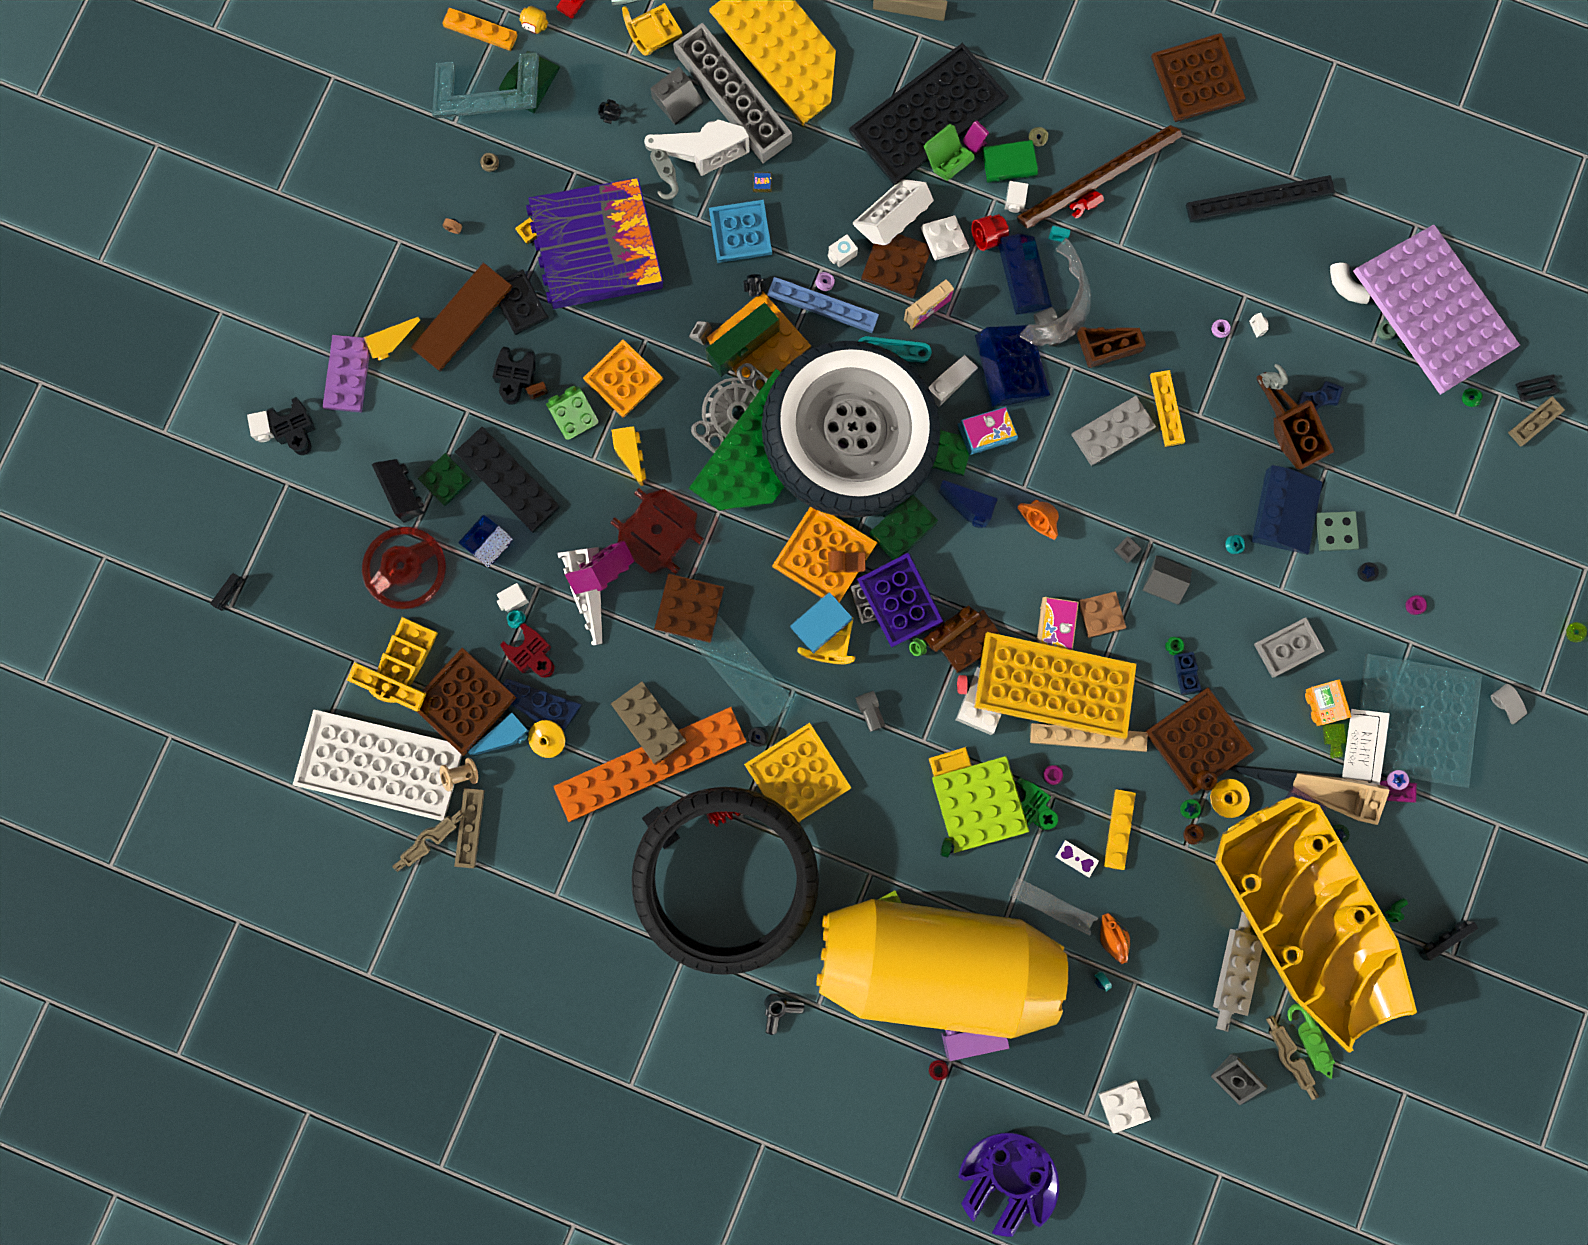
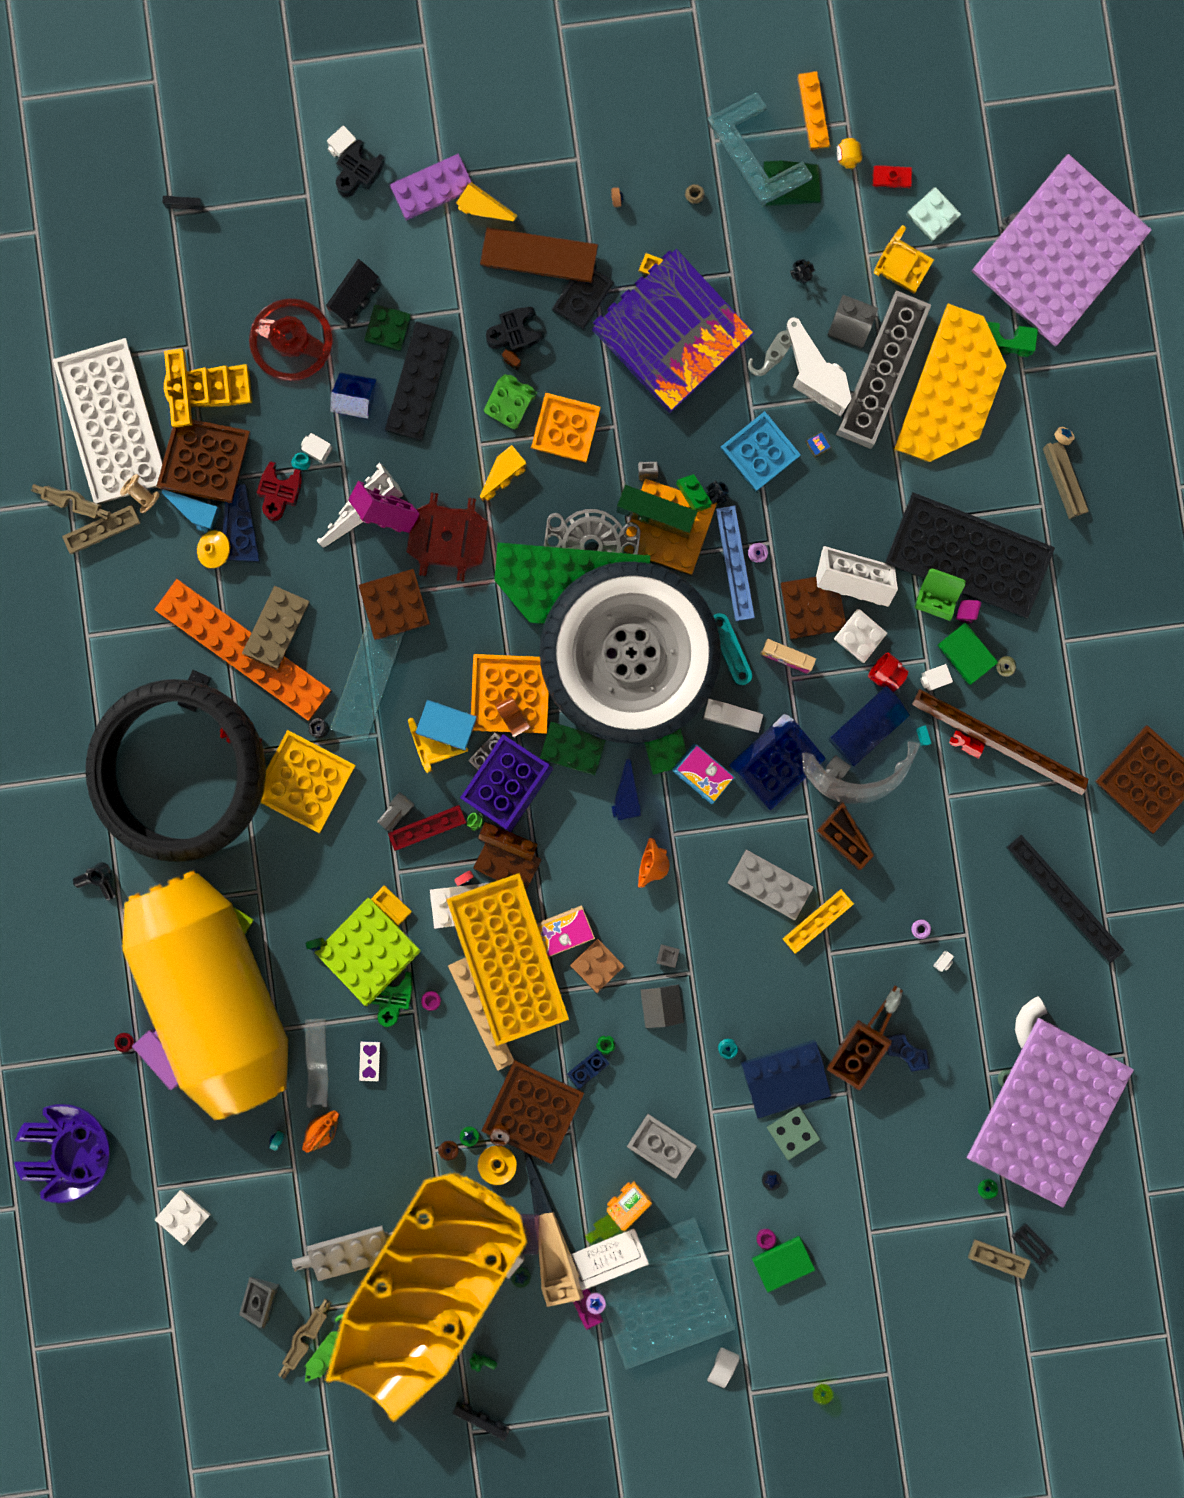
camera: 60 degrees right, 5 degrees up
(743, 303) = (694, 493): none -> green plate
(842, 251) = (794, 552): white brick -> none
(900, 692) = (427, 828): none -> dark red plate
(1119, 829) = (416, 1084): yellow plate -> none
(1446, 602) = (783, 1264): none -> green piece

